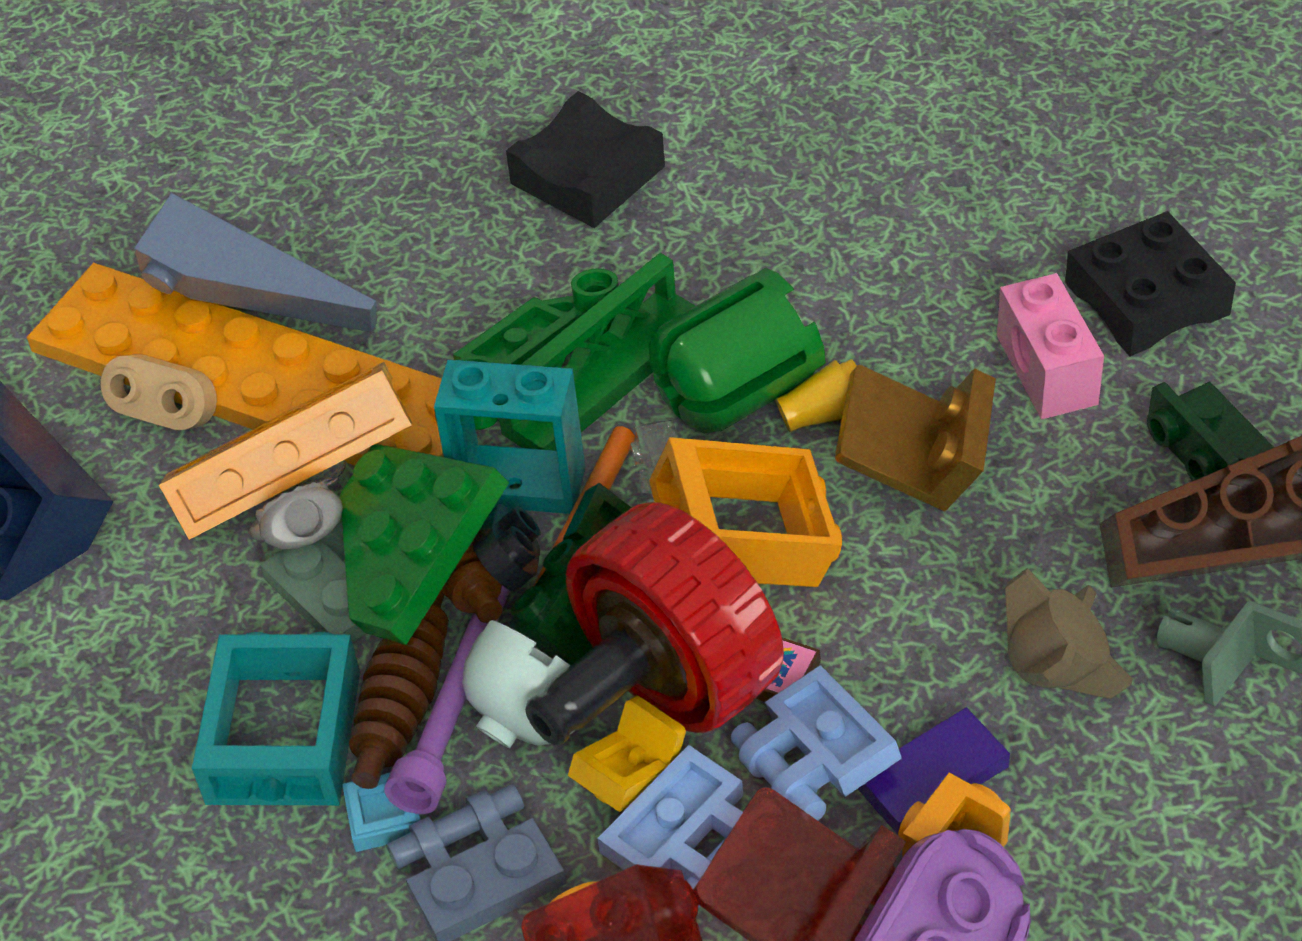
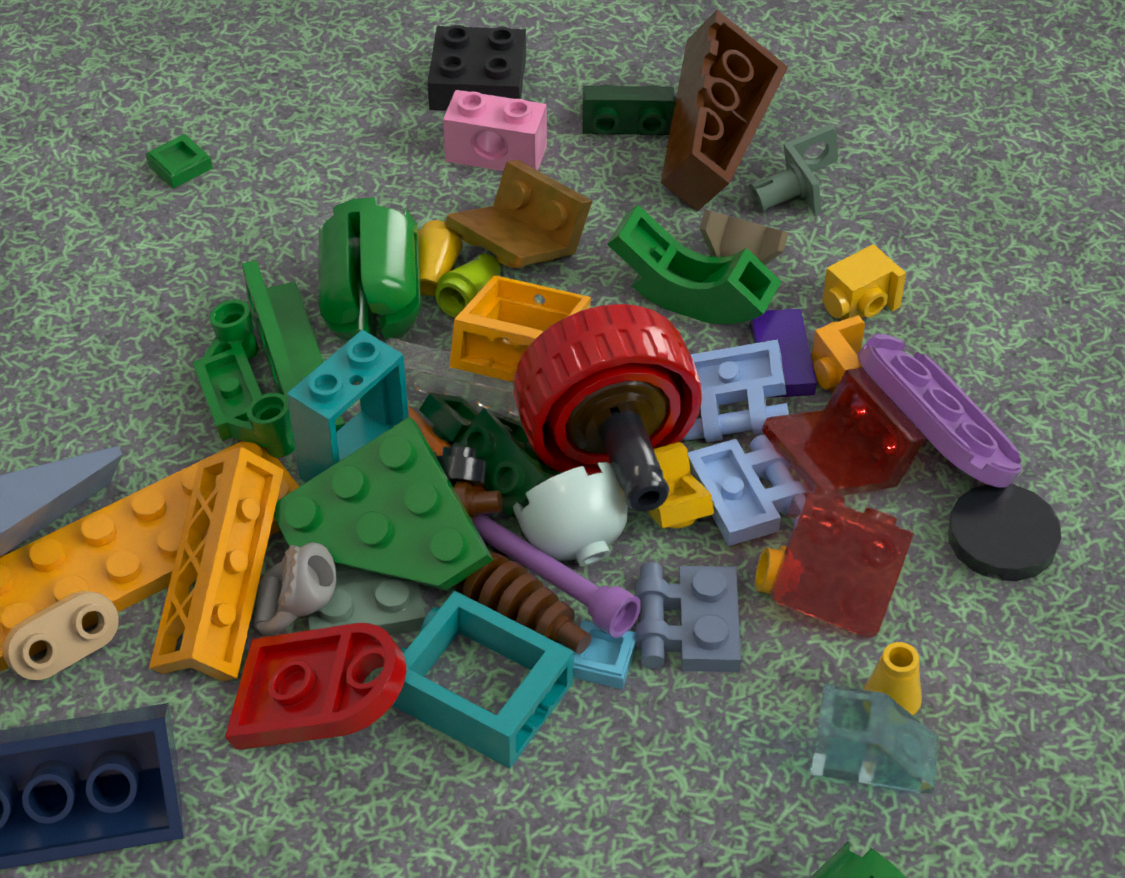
camera: 65 degrees left, 0 degrees up
(190, 594) = (314, 685): none -> red tile
(586, 160) = (77, 275): black brick -> none
(805, 433) = (463, 283): none -> lime cone
(811, 144) = (179, 161): none -> green tile
(961, 614) = (691, 283): none -> green arch
(1089, 794) = (863, 284): none -> yellow brick

